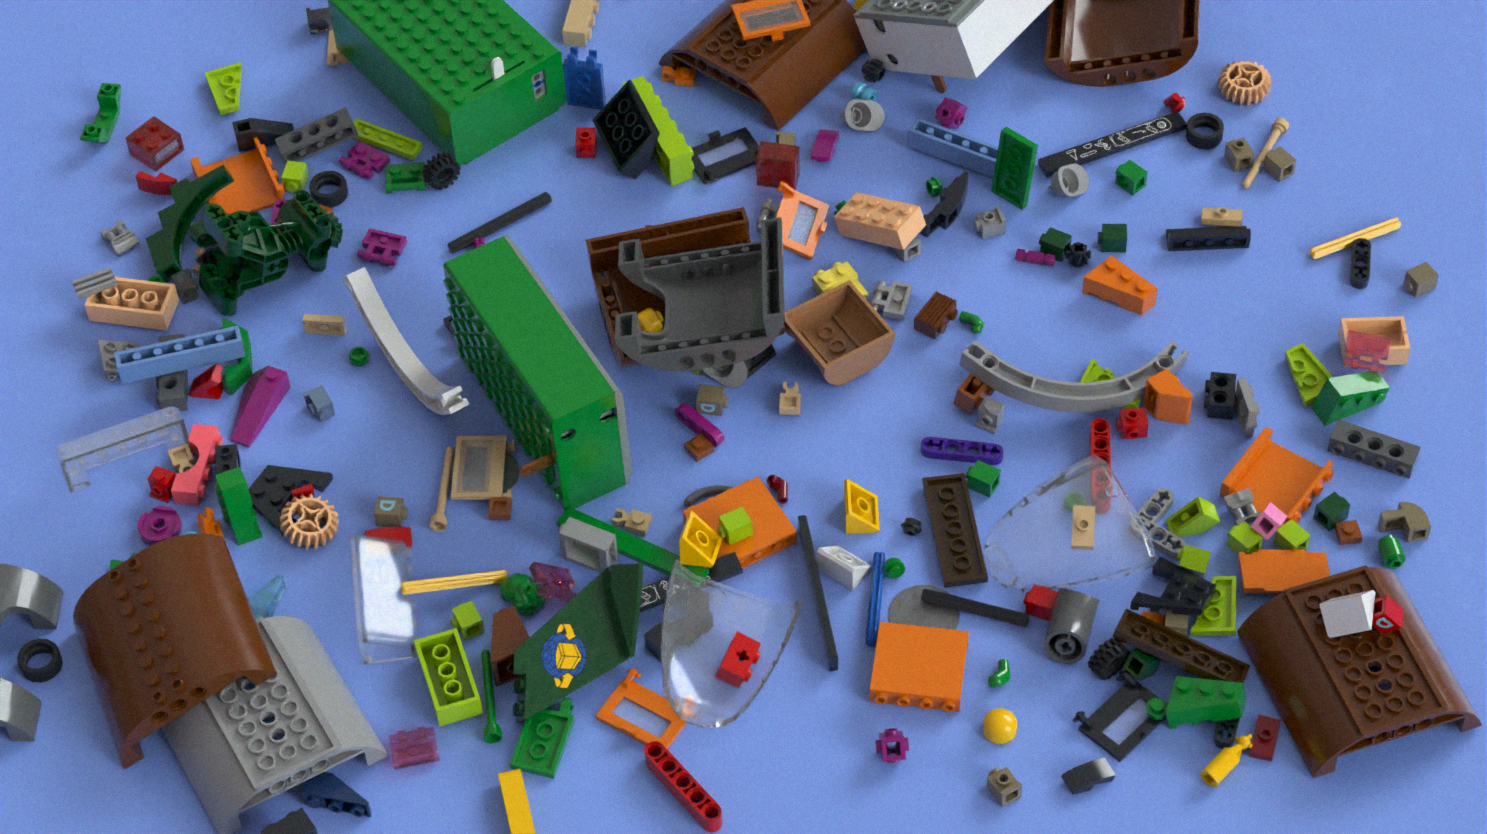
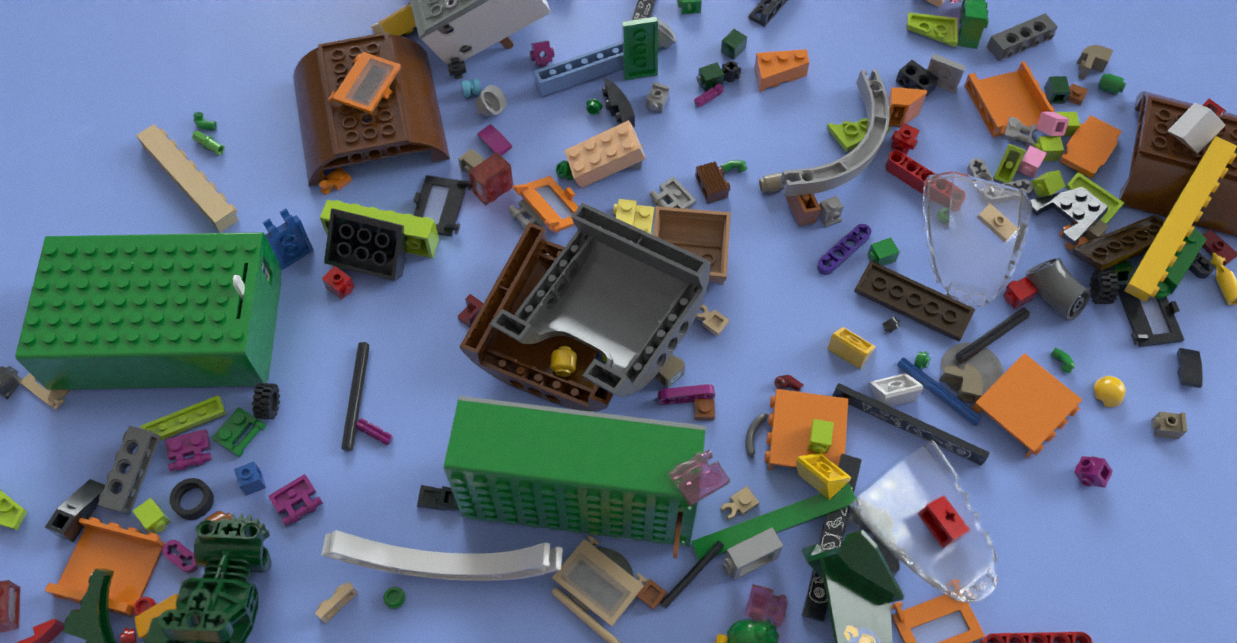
camera: 55 degrees left, 10 degrees up
(373, 208) = (249, 478): none -> blue brick
(529, 523) = (687, 579): none -> black bar
(567, 412) = (702, 483): none -> clear pink plate
(902, 606) = (968, 381): none -> dark tan brick
(1212, 535) = (1031, 161): none -> bright pink brick
(1234, 661) = (1179, 221): none -> yellow brick

